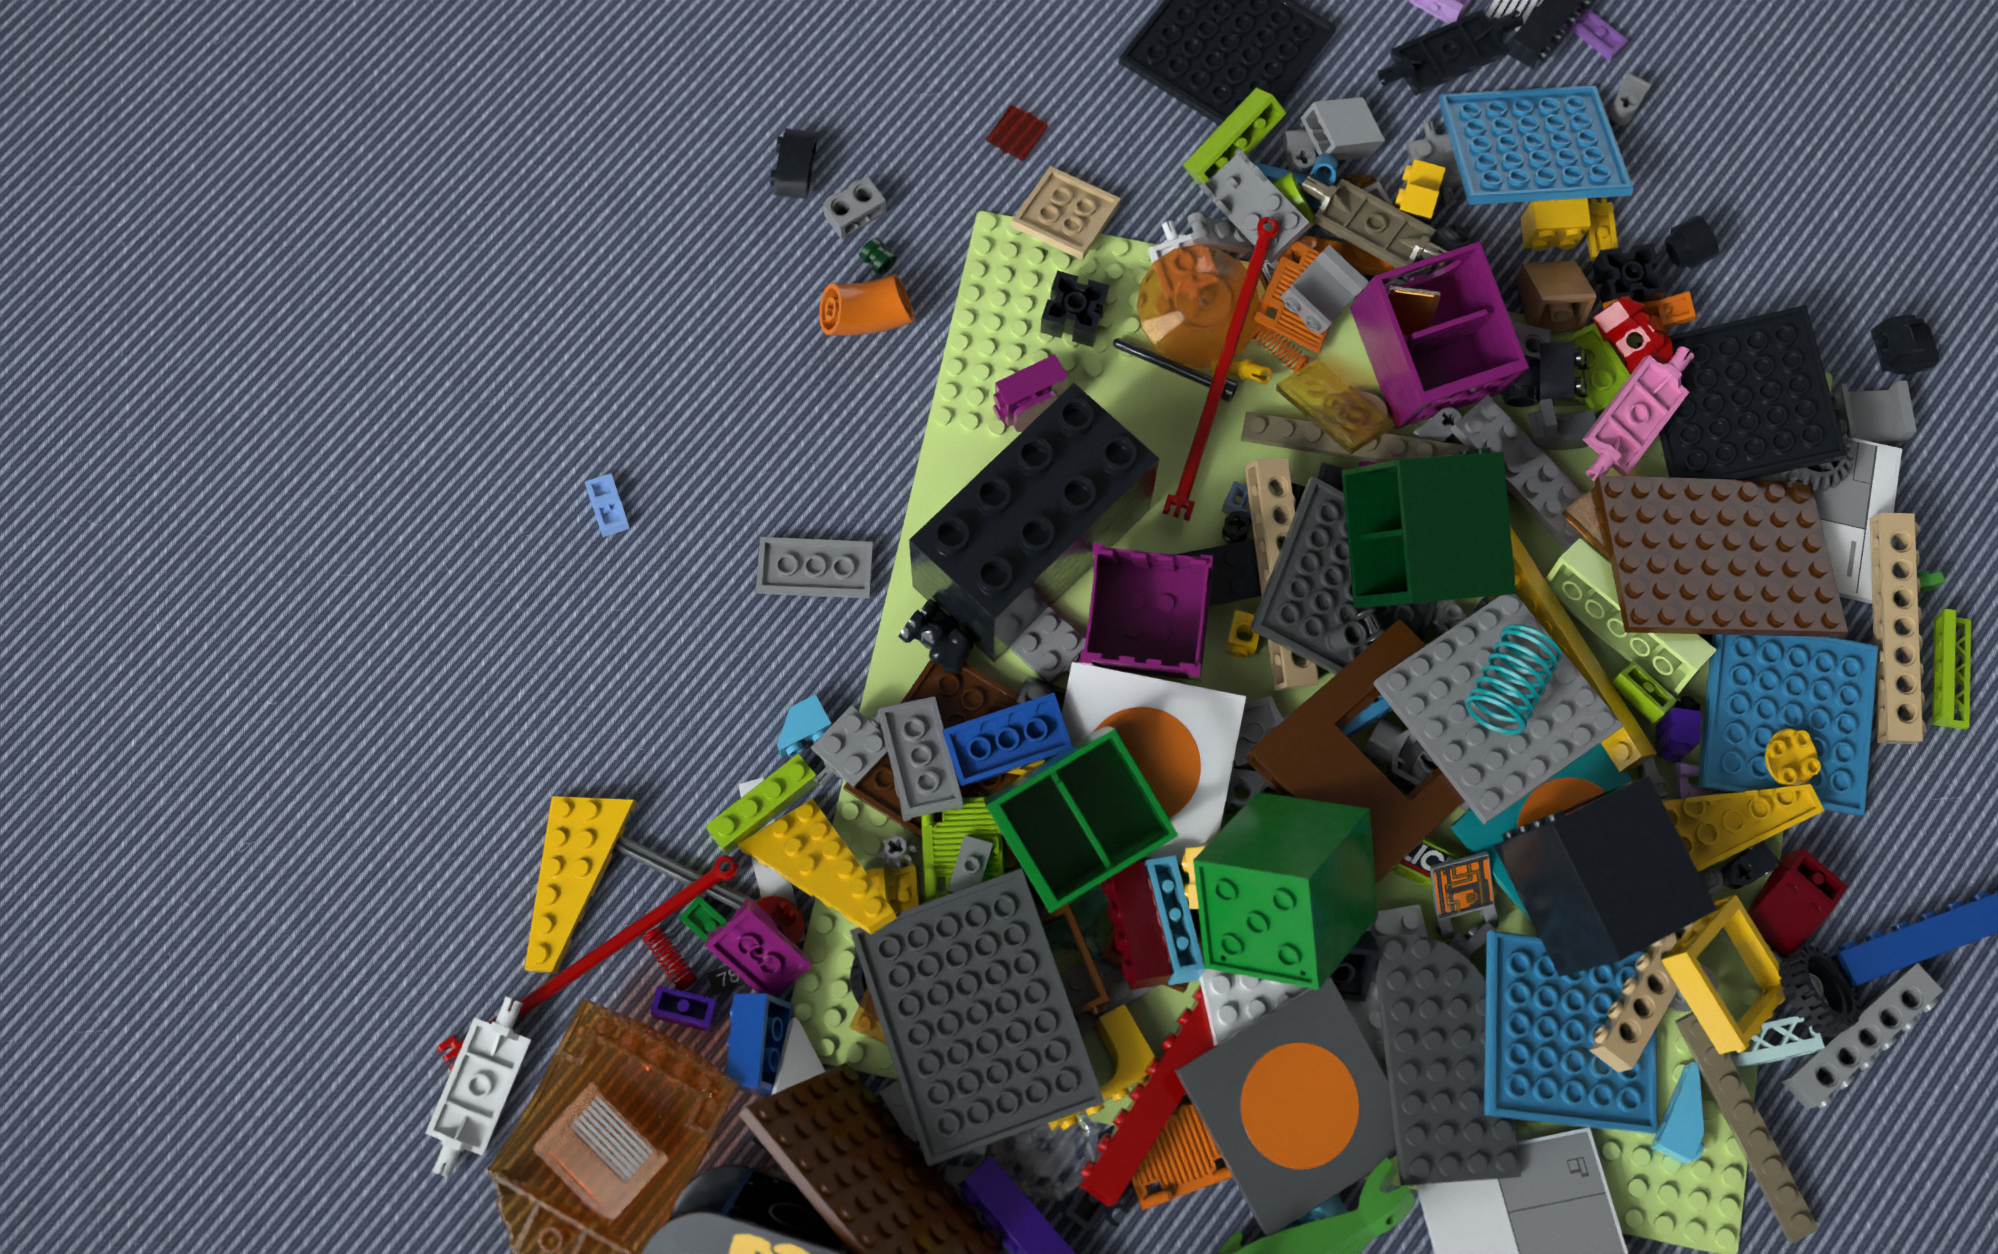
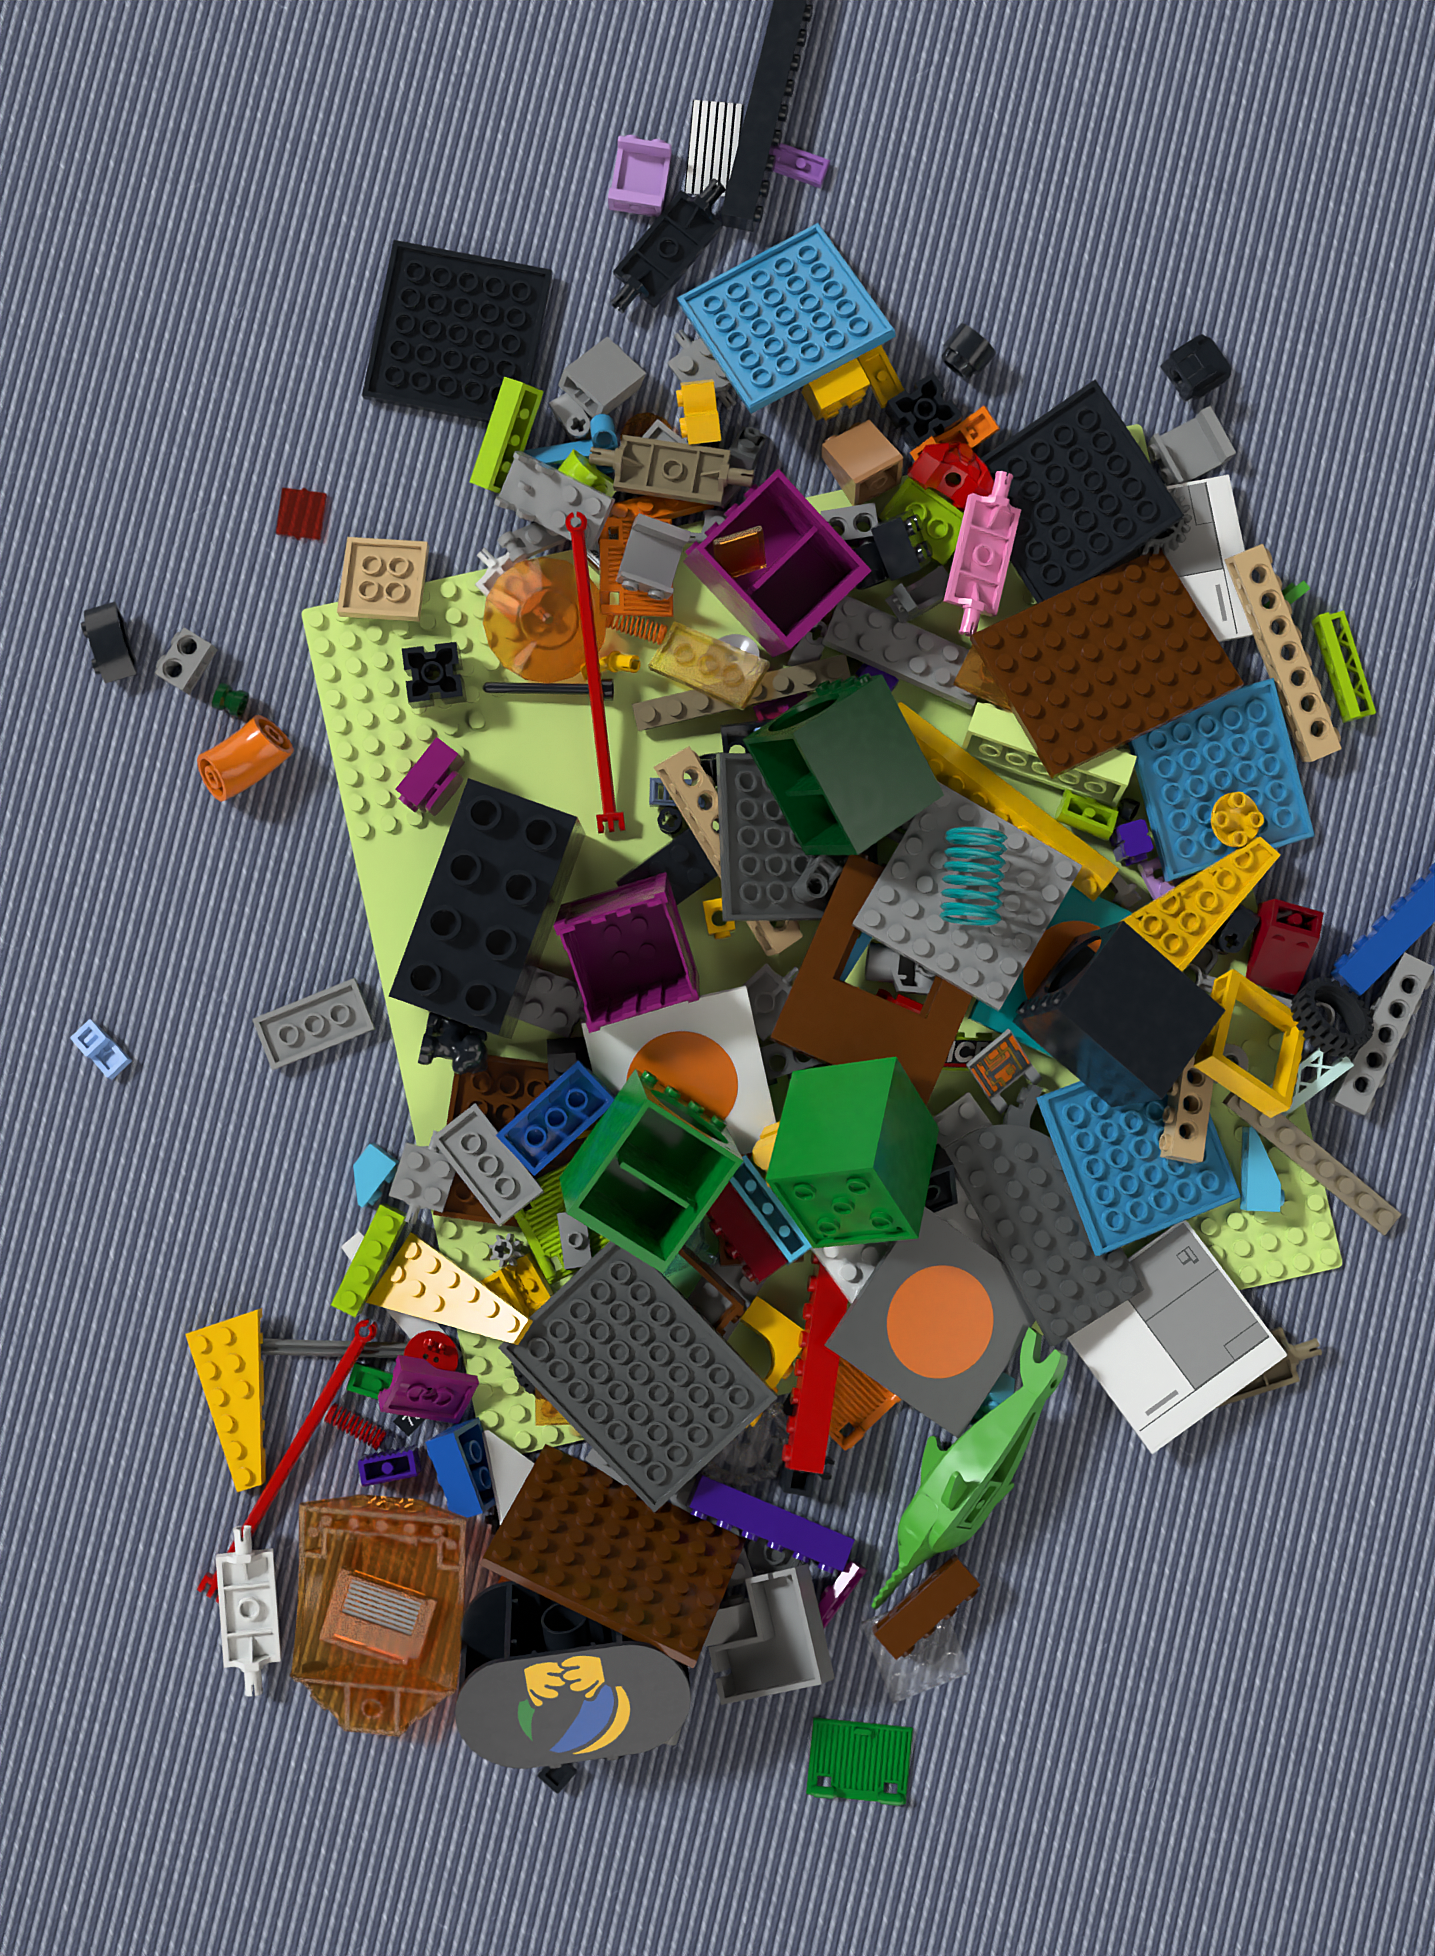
camera: 25 degrees left, 15 degrees up
(1628, 99) = (854, 222): light grey piece -> none

